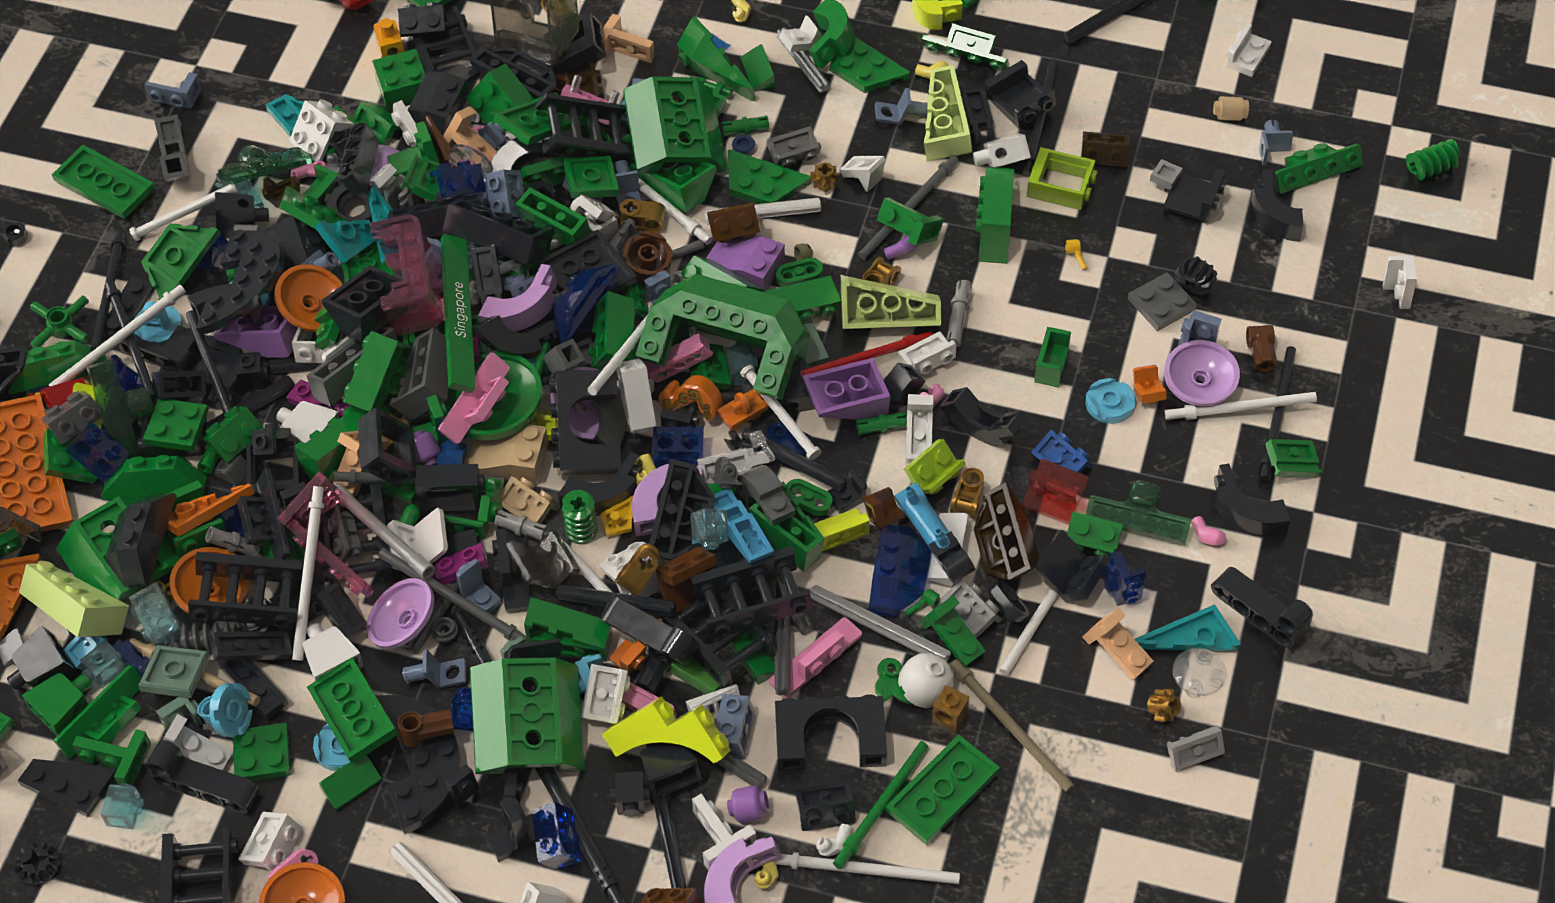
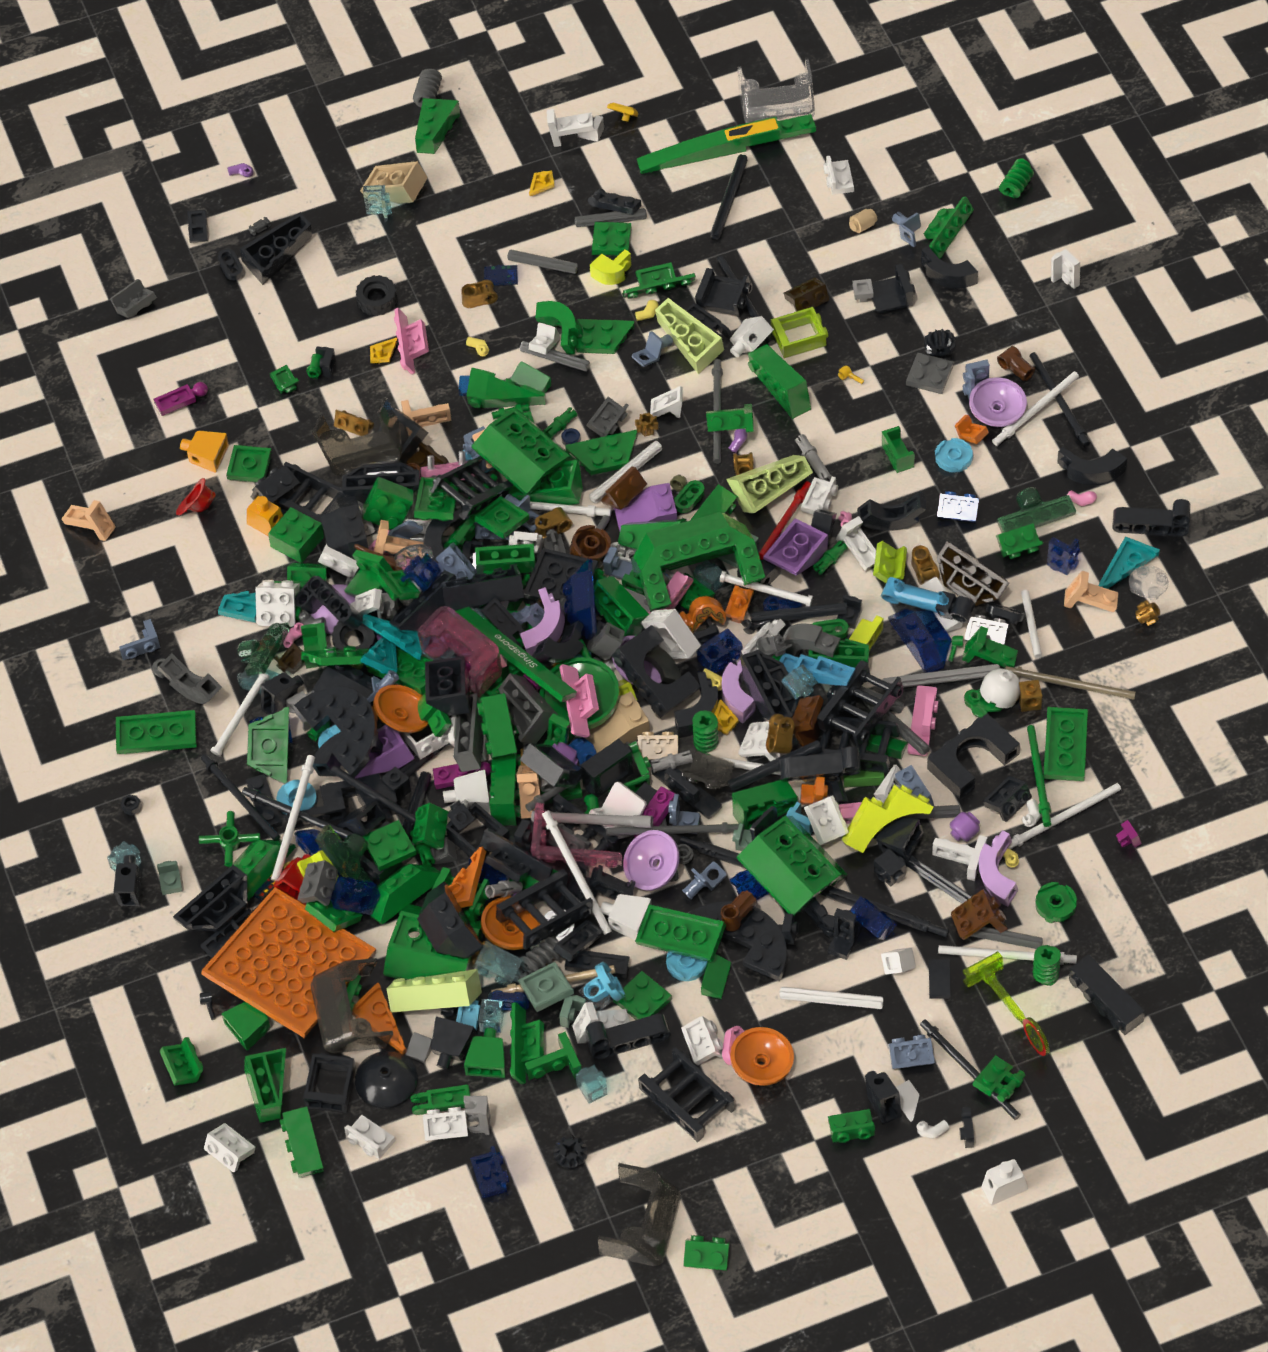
camera: 35 degrees left, 0 degrees up
(68, 784) = (540, 1097): black wing -> none
(617, 359) = (632, 577): white bar -> none
(758, 439) = (769, 613): clear hand -> none
(882, 508) = (880, 607): reddish brown panel -> none
(1054, 491) = (974, 530): clear red bracket -> none
(1069, 569) = (1028, 572): black bracket -> none
(1196, 748) = (1186, 625): light grey plate -> none
(1293, 458) = (1094, 420): green plate -> none

